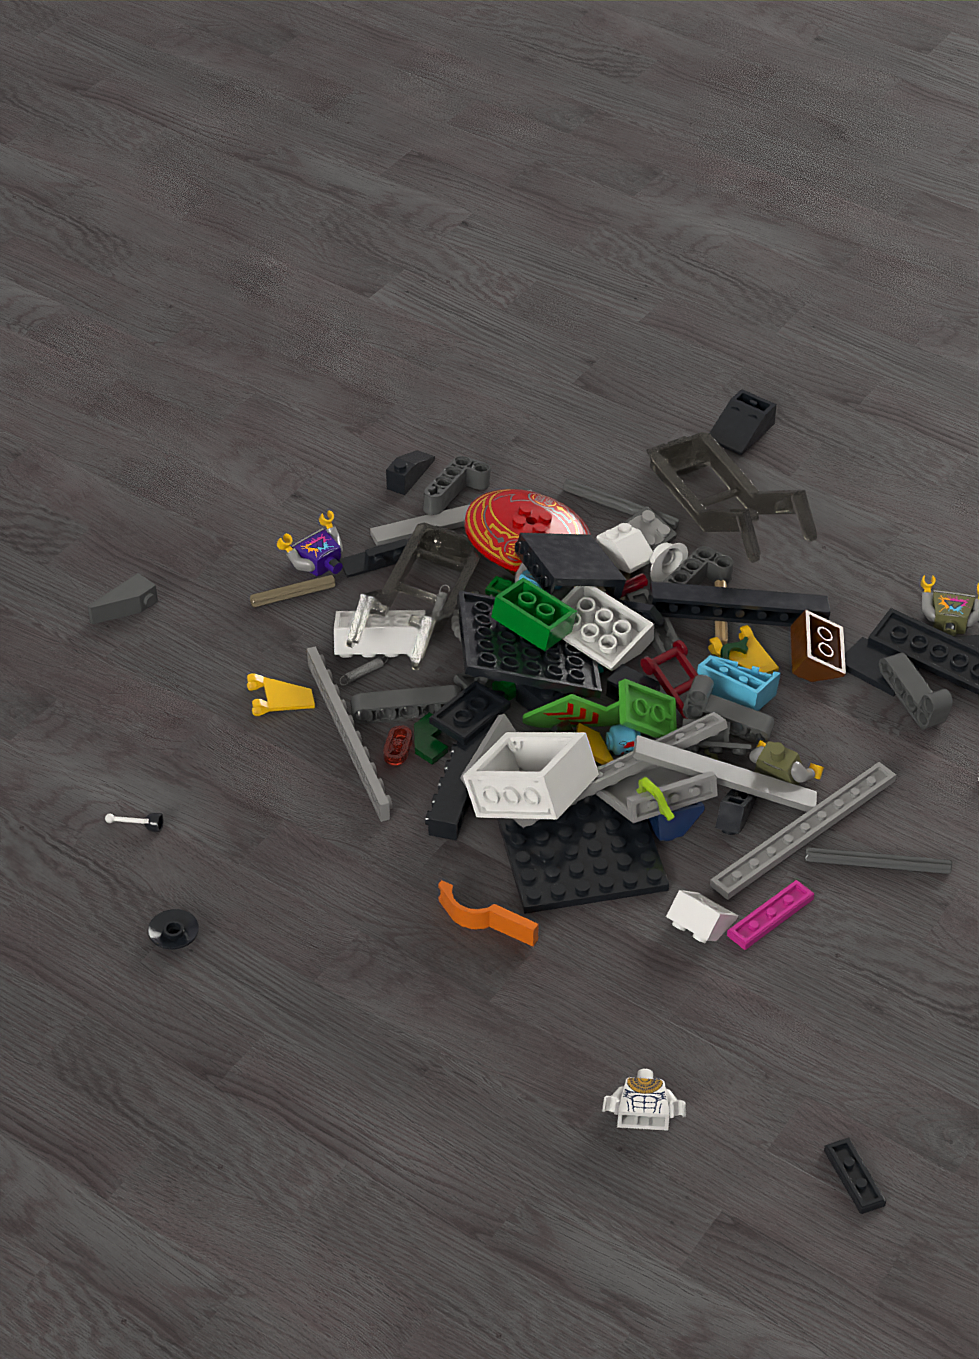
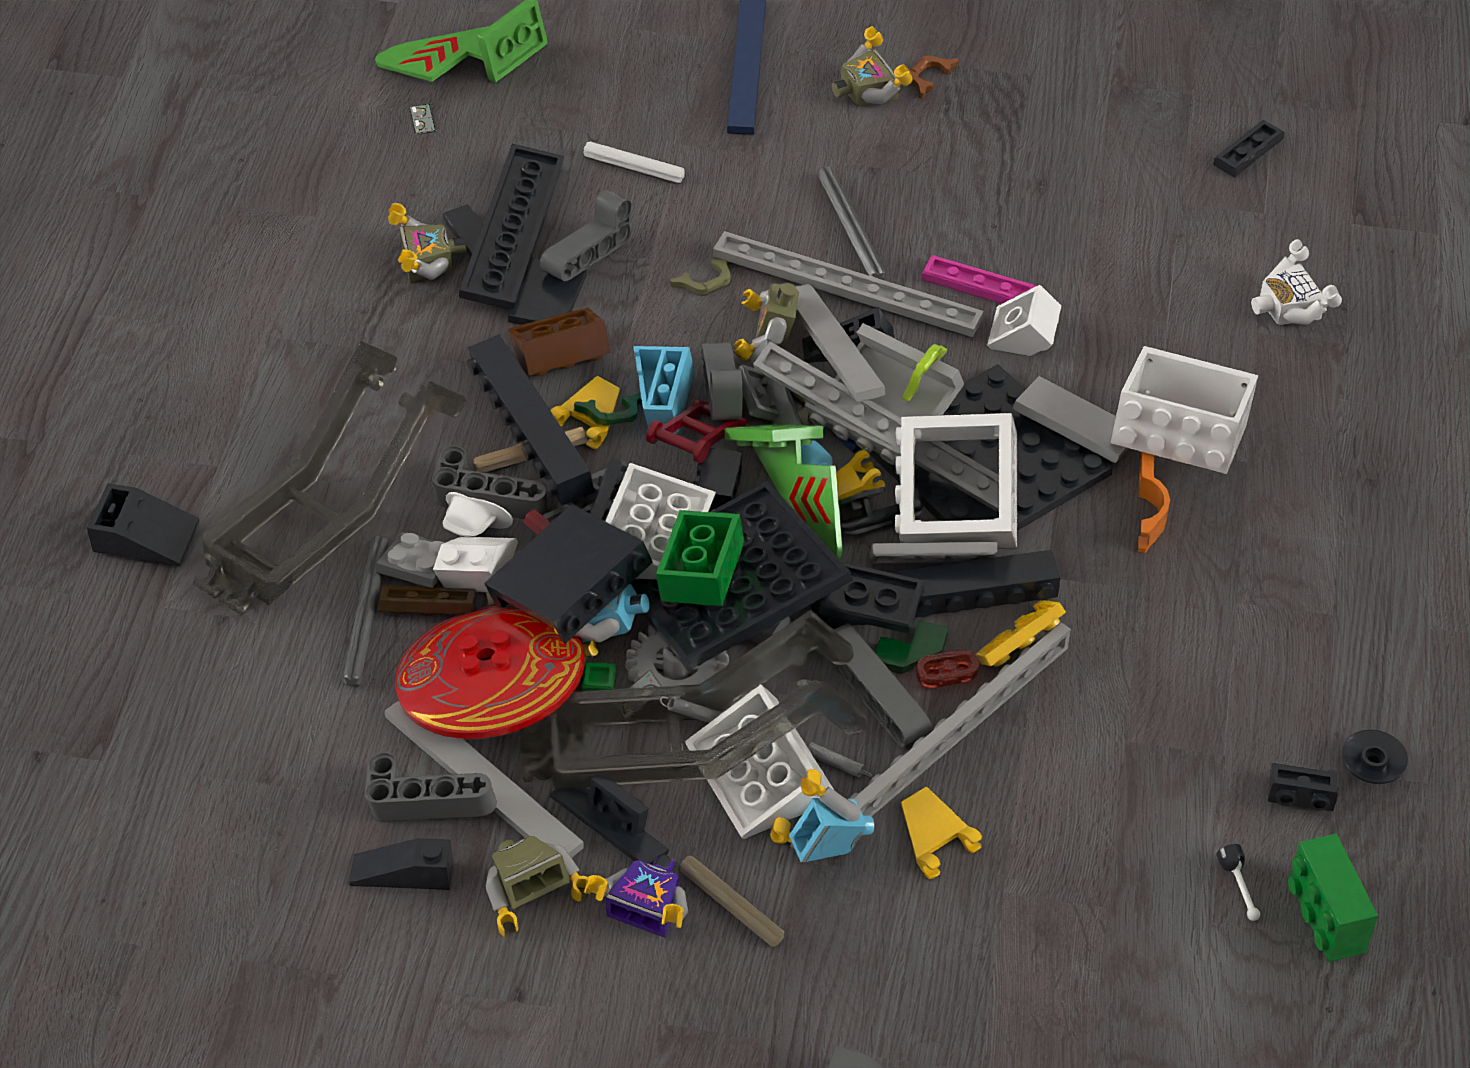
camera: 115 degrees left, 5 degrees up
(81, 841) = (1332, 898): none -> green brick
(177, 879) = (1303, 787): none -> black bracket
(303, 628) = (826, 827): none -> medium azure torso
(365, 509) = (527, 872): none -> olive torso
(399, 787) = (1027, 626): none -> yellow wing
(568, 922) = (1184, 409): none -> white window
(579, 899) = (1070, 417): none -> light grey tile
(614, 516) = (427, 600): none -> dark brown plate
(849, 766) = (709, 286): none -> olive helmet

